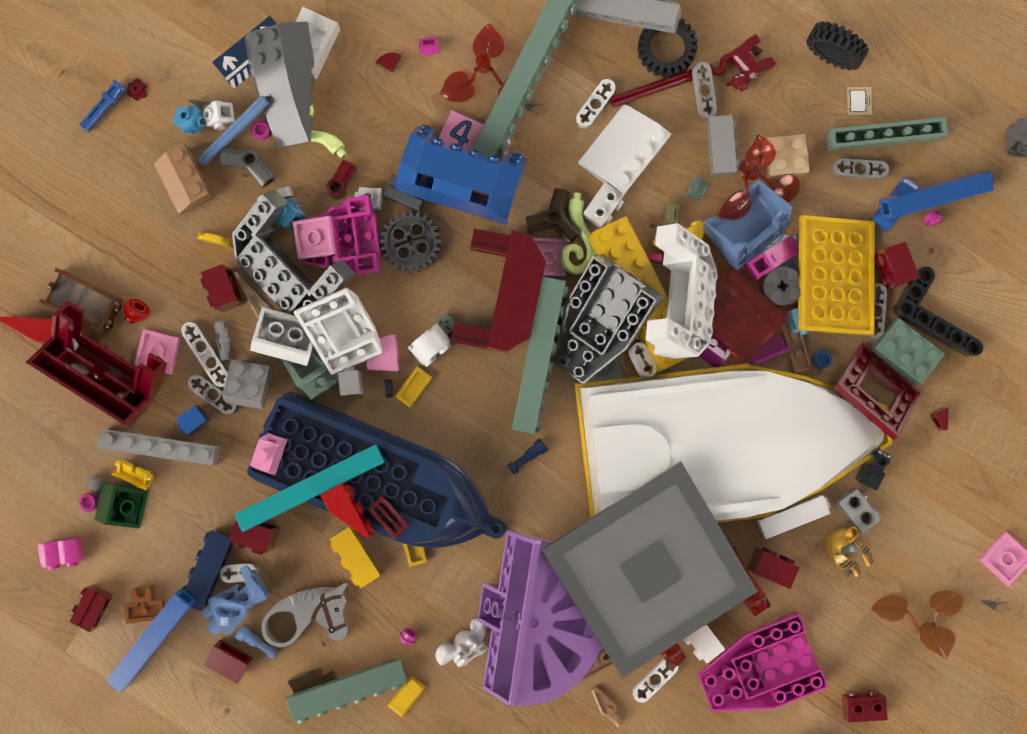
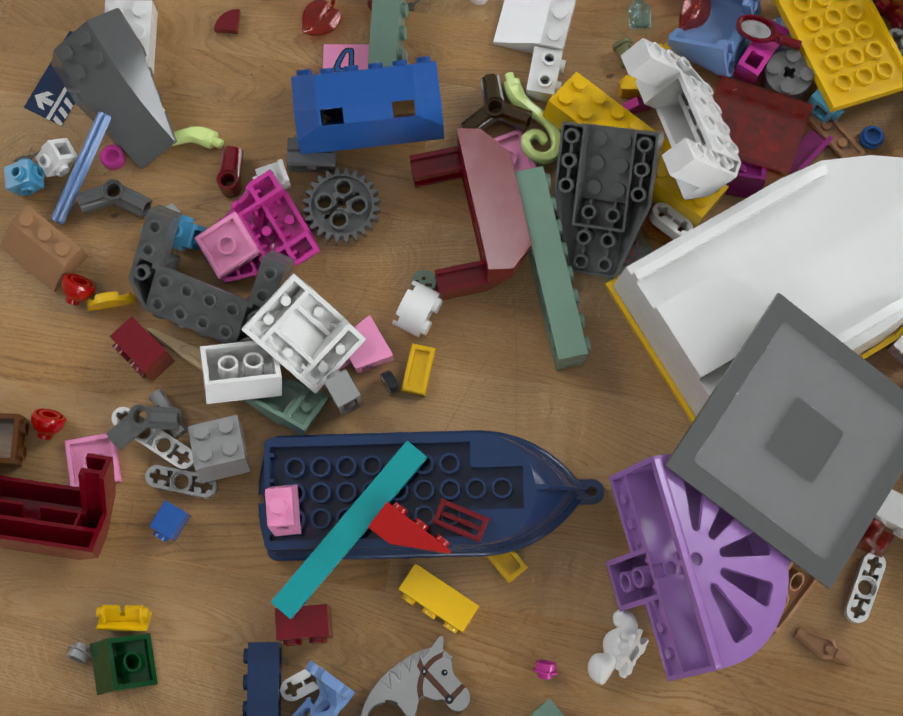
camera: 25 degrees left, 10 degrees down
(88, 502) = (81, 678): dark pink plate -> none
(159, 447) = (141, 571): light grey brick -> none
(192, 342) = (130, 428): none -> dark grey piece
(195, 220) = (77, 288): none -> red brick
(530, 454) = (597, 376): dark blue piece -> none
(777, 246) = (763, 31): none -> dark red piece

